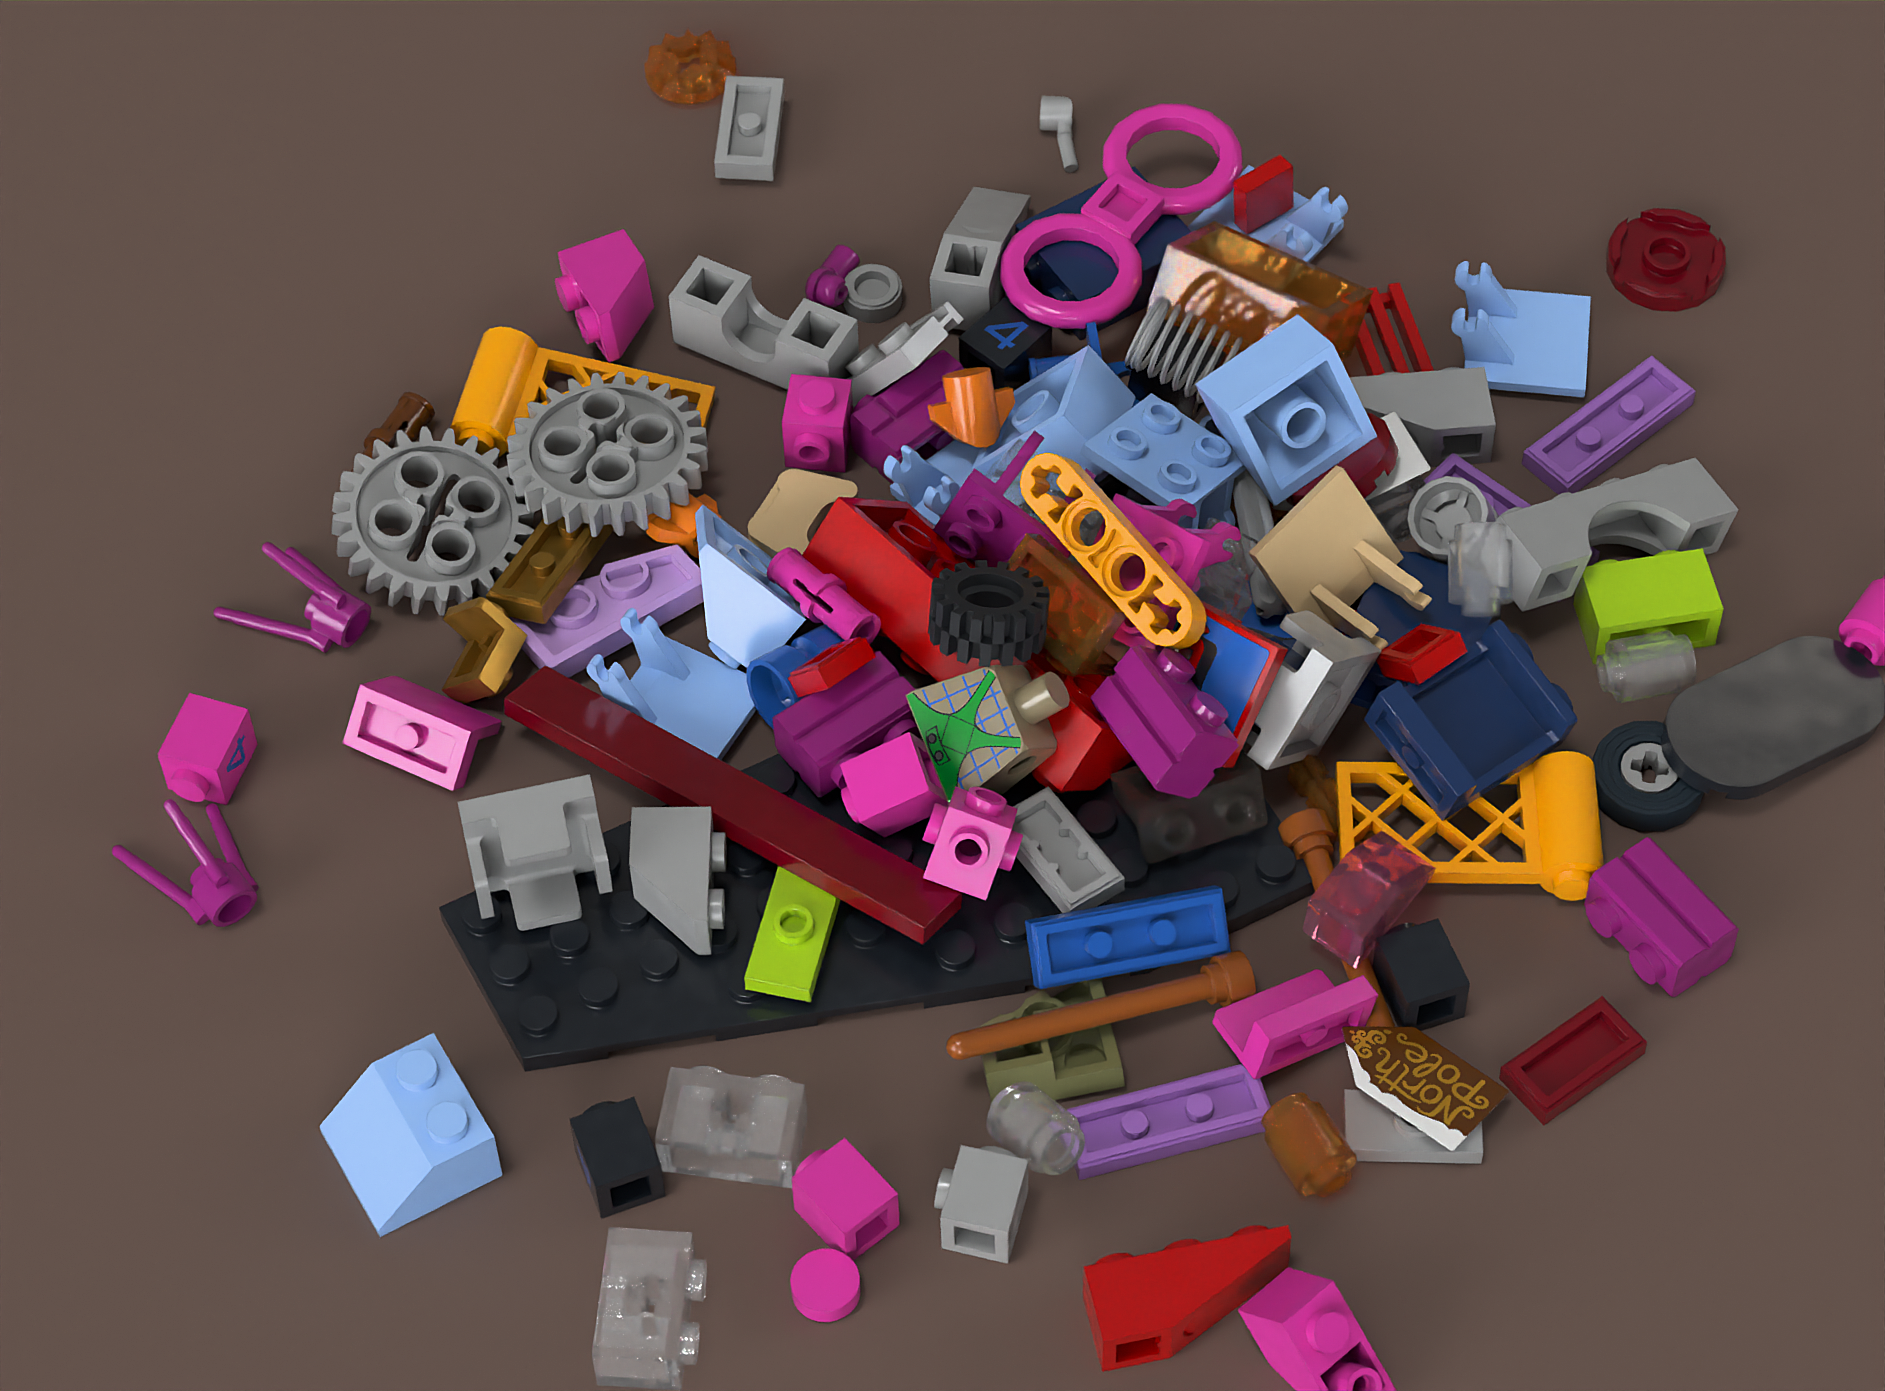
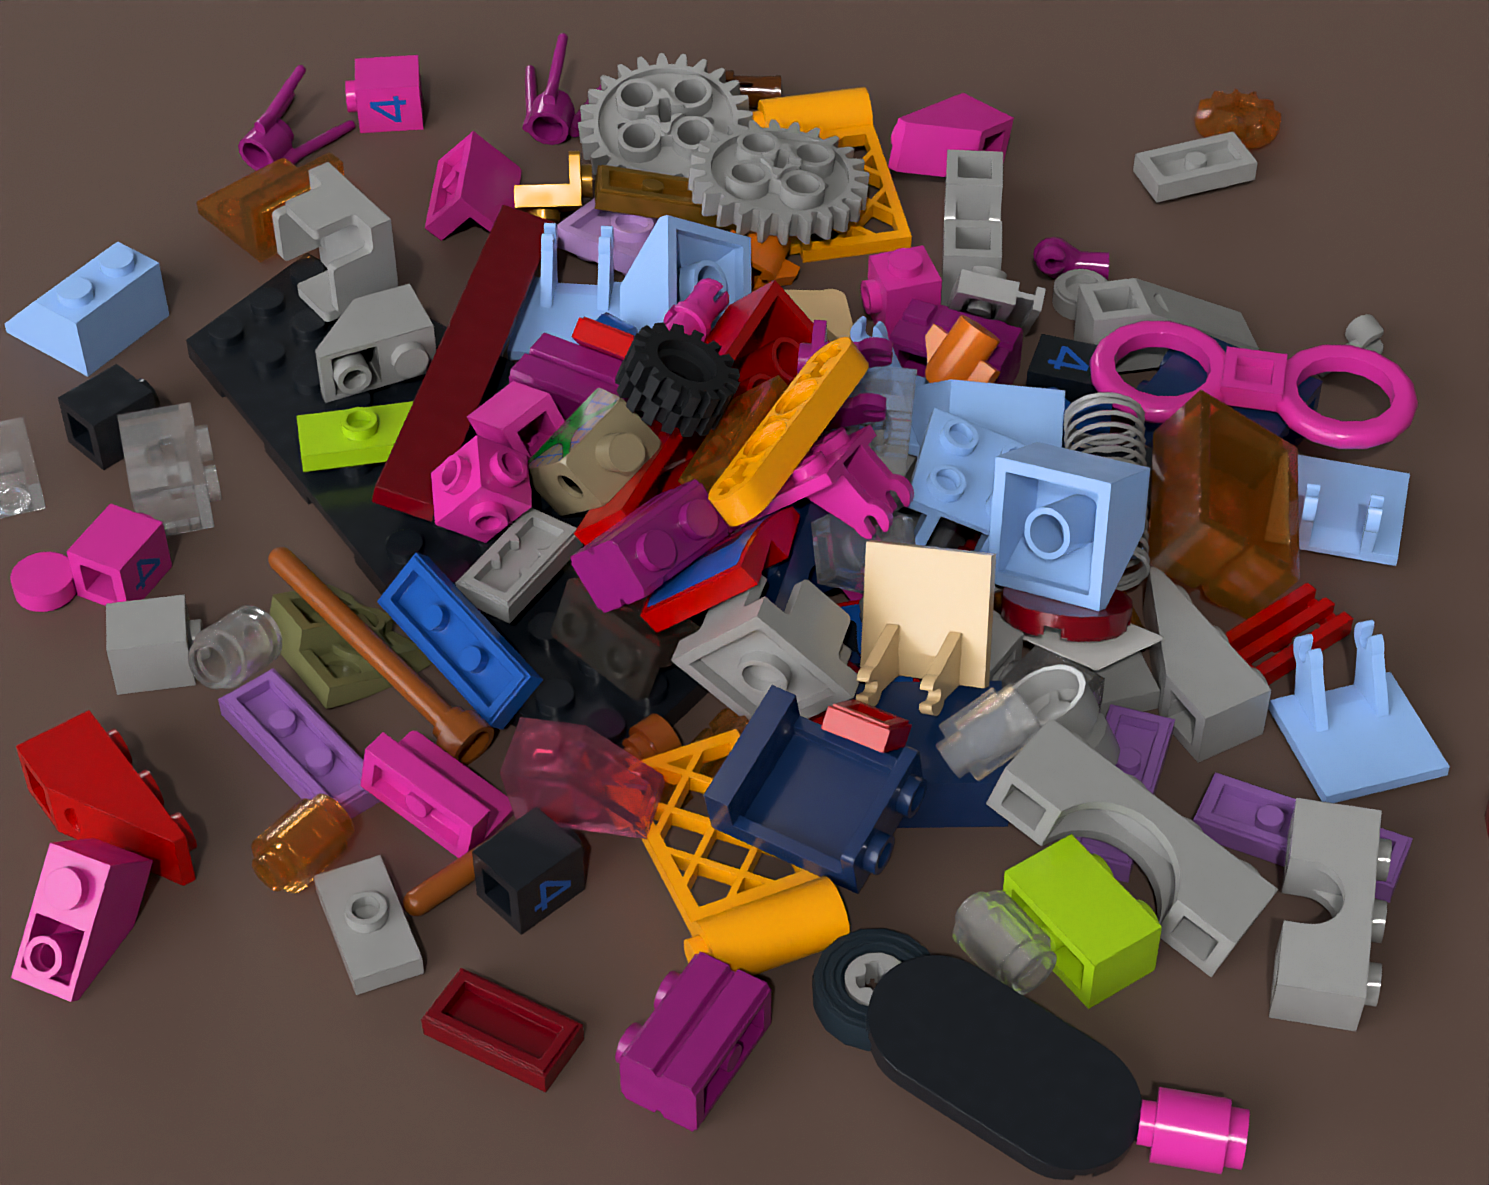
camera: 65 degrees right, 10 degrees down
(336, 915) = (247, 205): none -> clear orange bracket
(1263, 194) = (1359, 471): red tile -> none
(1421, 1081) = (406, 903): sticker -> none
(1688, 407) = (1325, 967): none -> light grey arch

